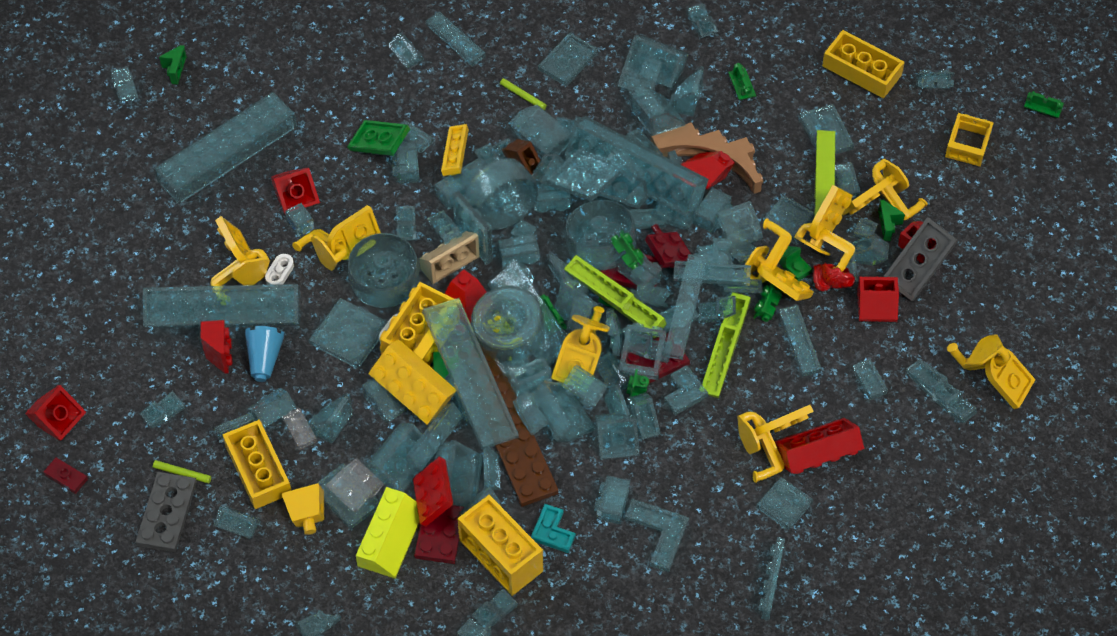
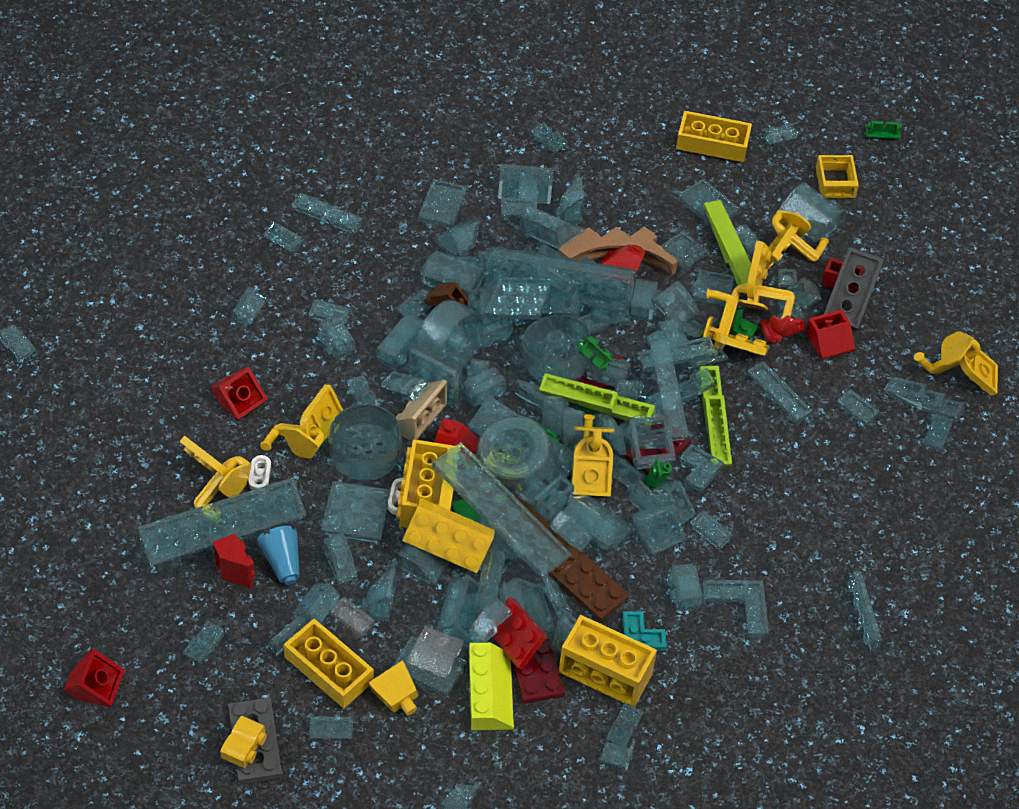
camera: 25 degrees left, 5 degrees down
(65, 475) = (133, 738): dark red plate -> none
(150, 510) = (243, 742): none -> yellow brick
(174, 63) = (58, 307): green slope -> none
(181, 471) = (247, 696): lime bar -> none
(225, 147) = (150, 373): clear light blue brick -> none
(299, 220) = (257, 420): clear light blue brick -> none
(313, 371) = (340, 558): none -> clear light blue slope
(342, 109) = (248, 306): none -> clear light blue slope
(378, 137) = (299, 321): green tile -> none
(411, 471) = (486, 623): none -> clear light blue slope
(454, 150) = (380, 312): yellow plate -> none
(522, 93) = (414, 245): lime bar -> none
(564, 98) = (459, 238): none -> clear light blue slope
(584, 386) = (610, 491): clear light blue brick -> none
(667, 247) = (621, 344): dark red plate -> none
(667, 453) = (711, 529): none -> clear light blue plate
(741, 82) = (612, 181): green hinge -> none
(750, 437) = (788, 488): yellow plate -> none
(769, 296) = (732, 365): green hinge -> none
(777, 172) = (685, 250): none -> clear light blue tile
(784, 503) = (839, 541): clear light blue plate -> none
(820, 445) = (844, 478): red slope -> none
(889, 217) = (802, 262): green slope -> none
(923, 169) = (815, 208): none -> clear light blue slope
(938, 429) = (938, 432): none -> clear light blue slope

